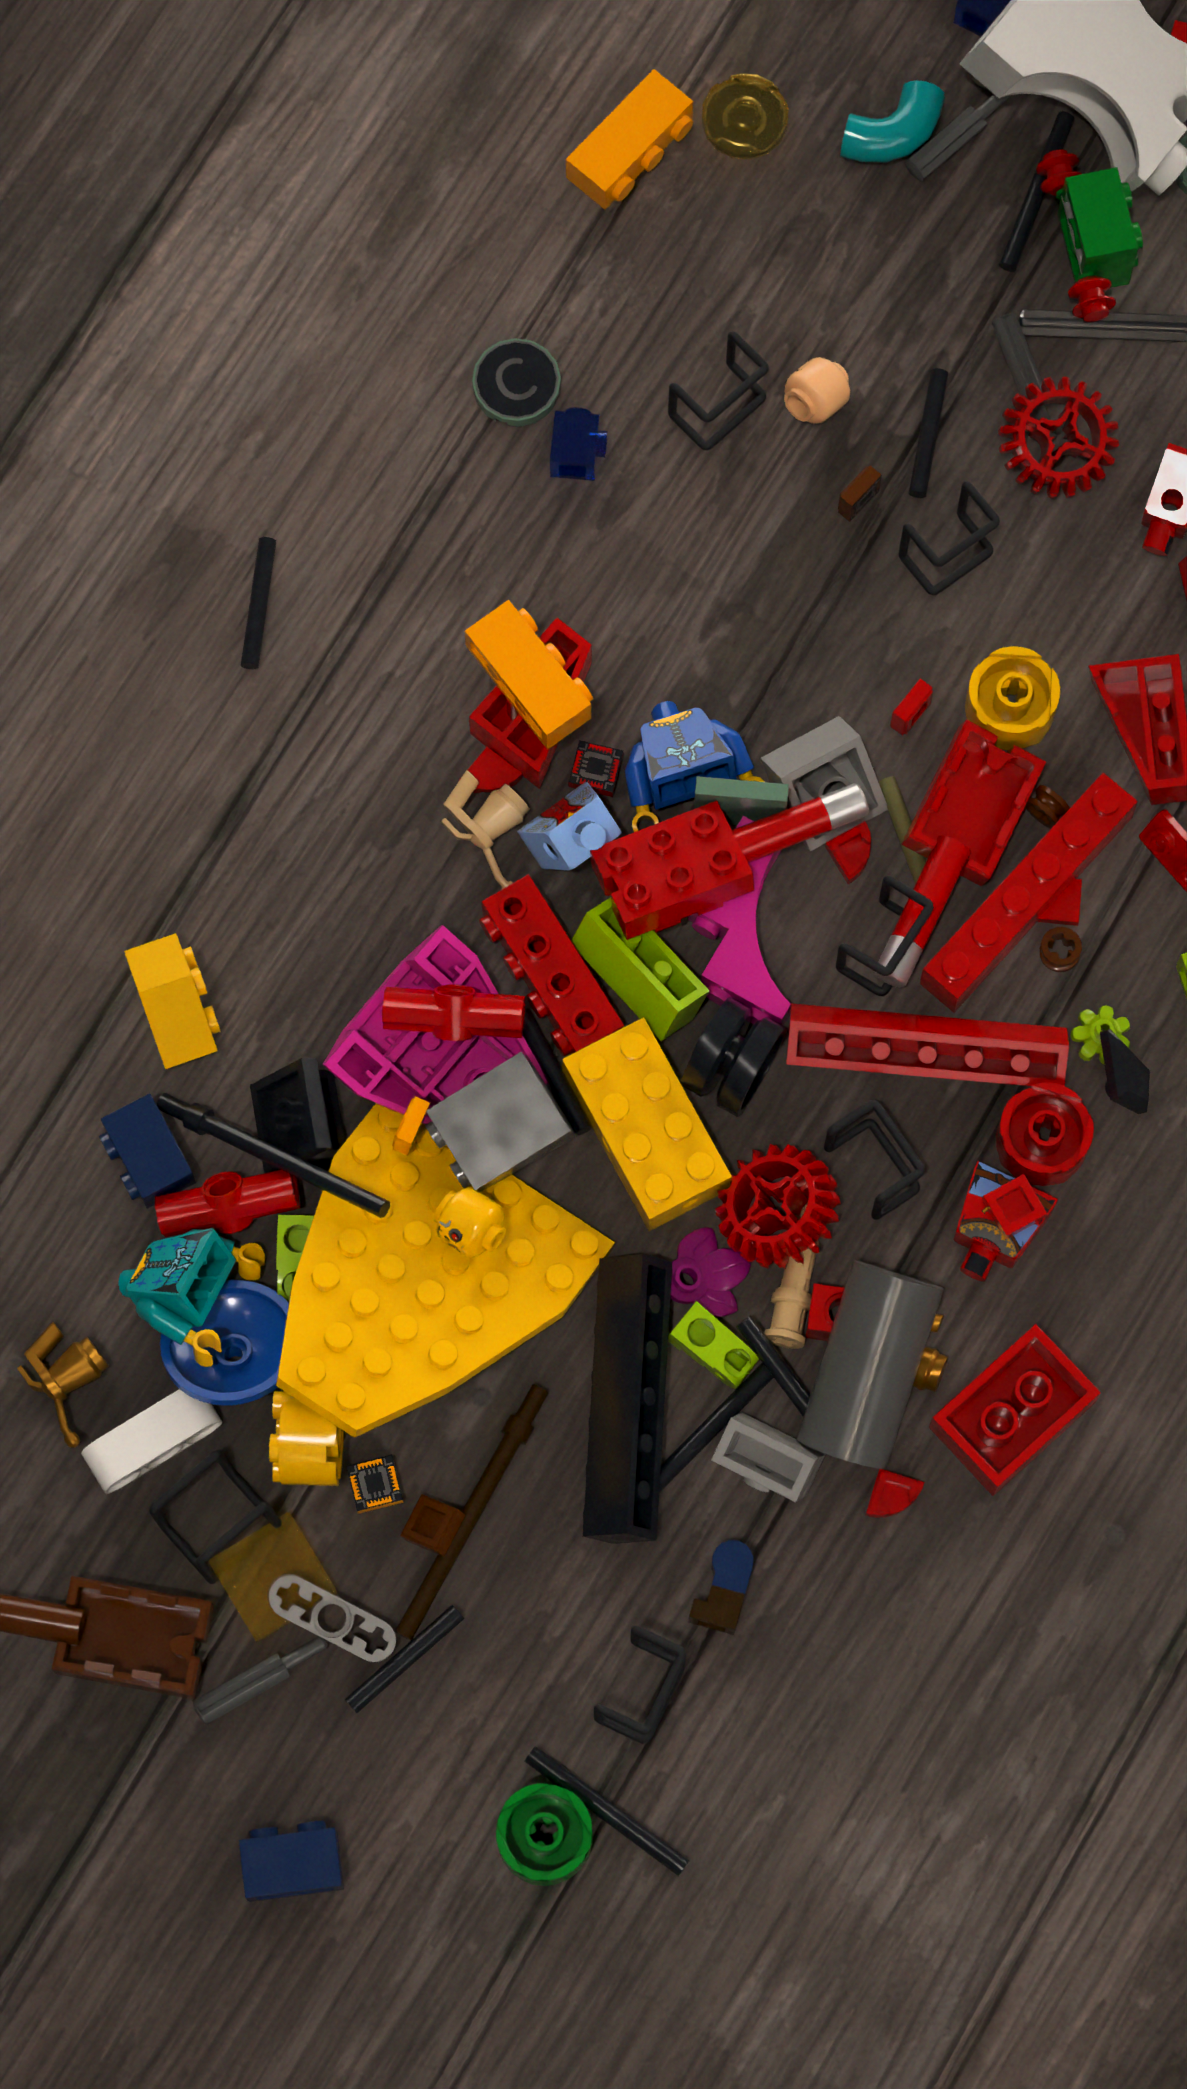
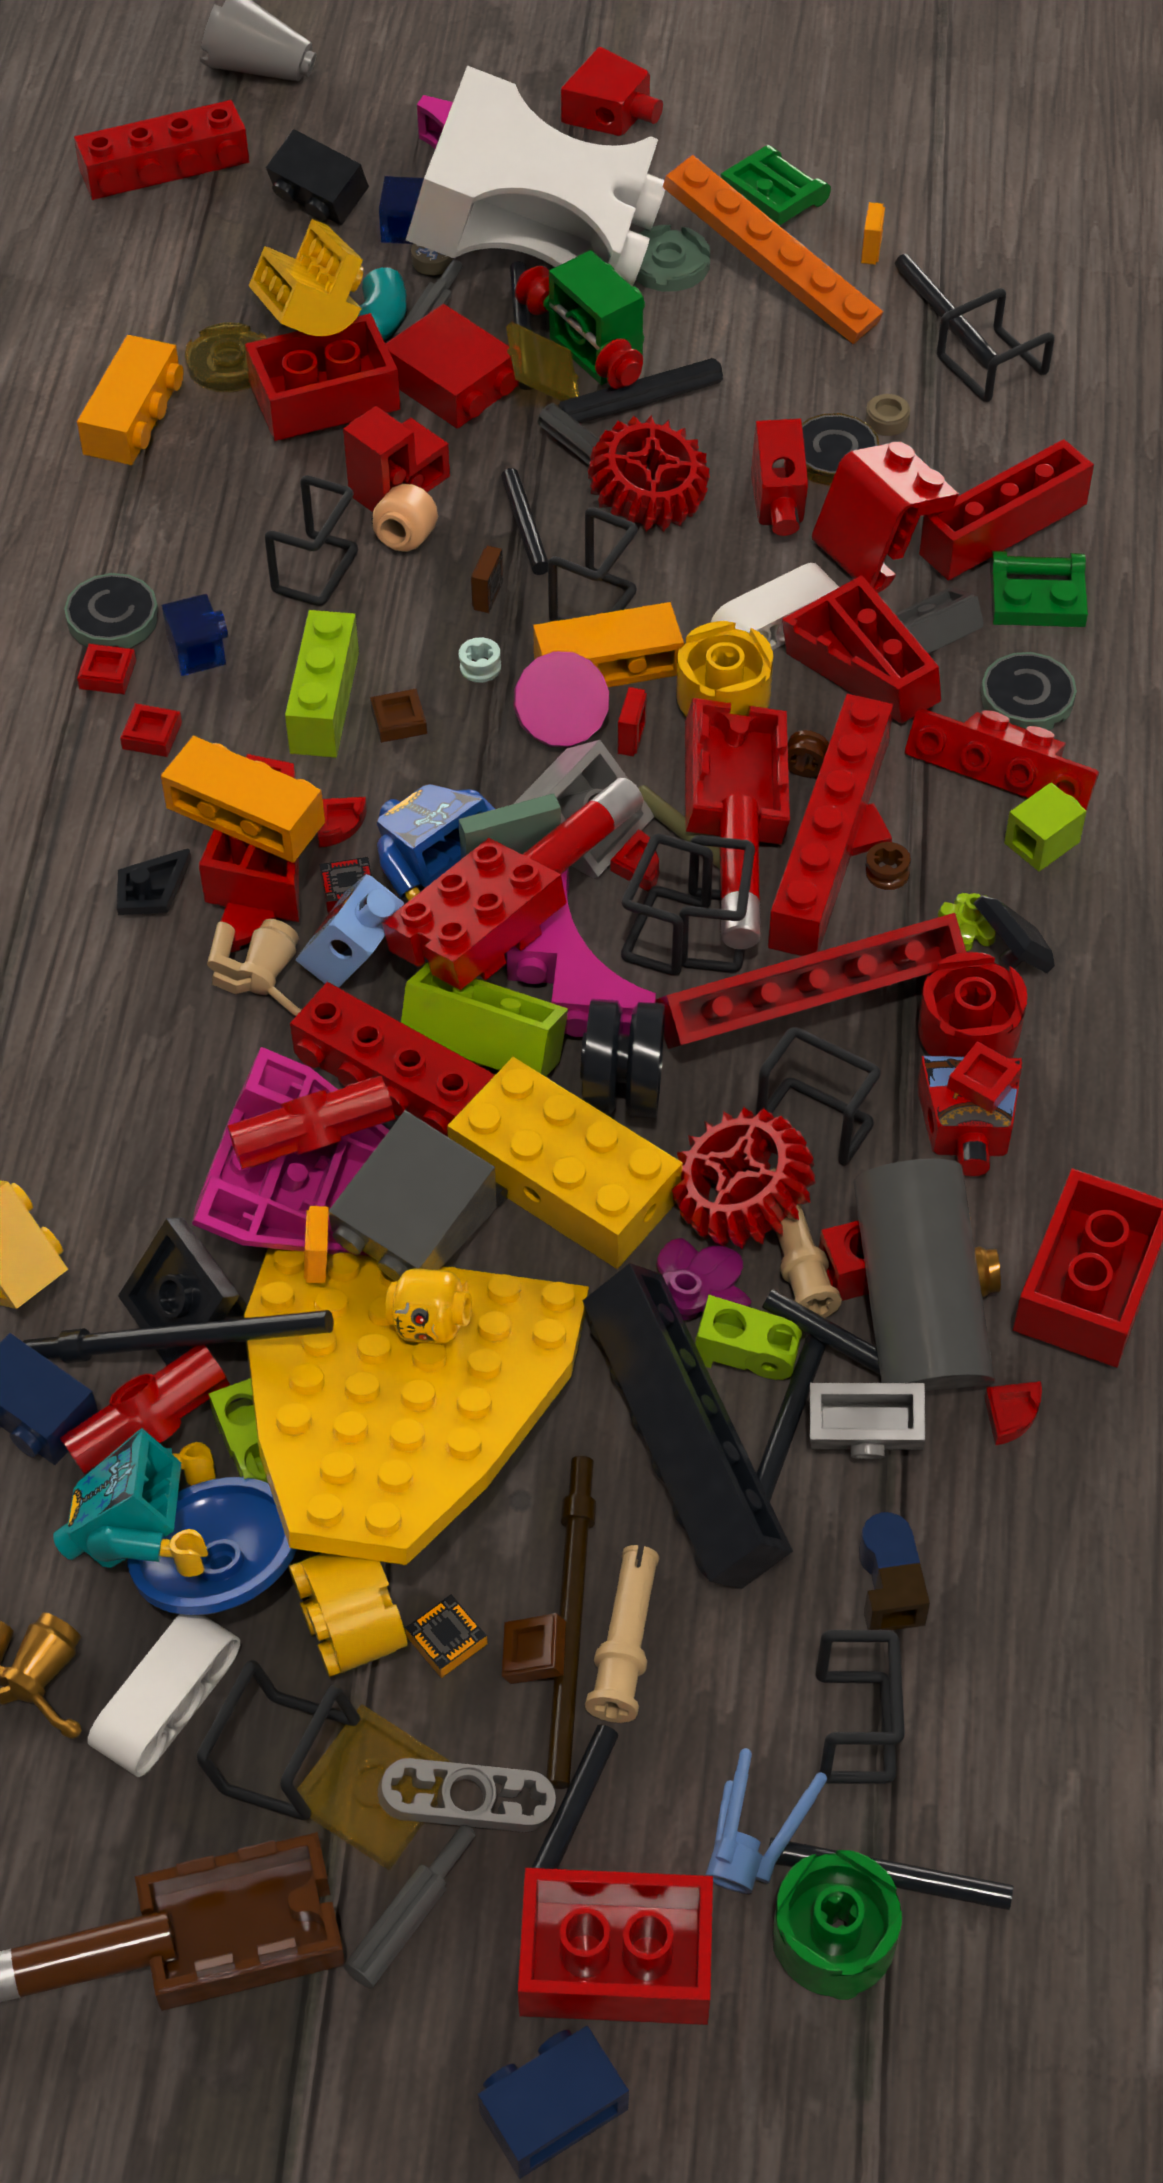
camera: 25 degrees left, 20 degrees down
(382, 1779) = (616, 1946): none -> red brick
(432, 697) = (151, 884): none -> black piece
(487, 444) = (106, 669): none -> red tile
(492, 1562) = (621, 1656): none -> tan pin
(498, 529) = (151, 730): none -> red tile
(500, 1751) = (735, 1855): none -> medium blue plant
(618, 696) = (342, 819): none -> red tile
(662, 550) = (322, 683): none -> lime brick
(717, 606) = (398, 715): none -> reddish brown tile
(807, 927) = (646, 910): none -> black piece
(812, 588) = (483, 669): none -> light aqua bush
(813, 193) = (322, 380): none -> red brick
(834, 322) = (391, 453): none -> red brick
(840, 88) = (314, 287): none -> yellow brick
(858, 661) = (561, 699): none -> dark pink tile
(928, 617) = (622, 644): none -> light orange brick
(941, 223) = (452, 365): none -> red brick
(1025, 261) = (542, 363): none -> clear yellow piece
(1101, 638) = (770, 603): none -> white beam

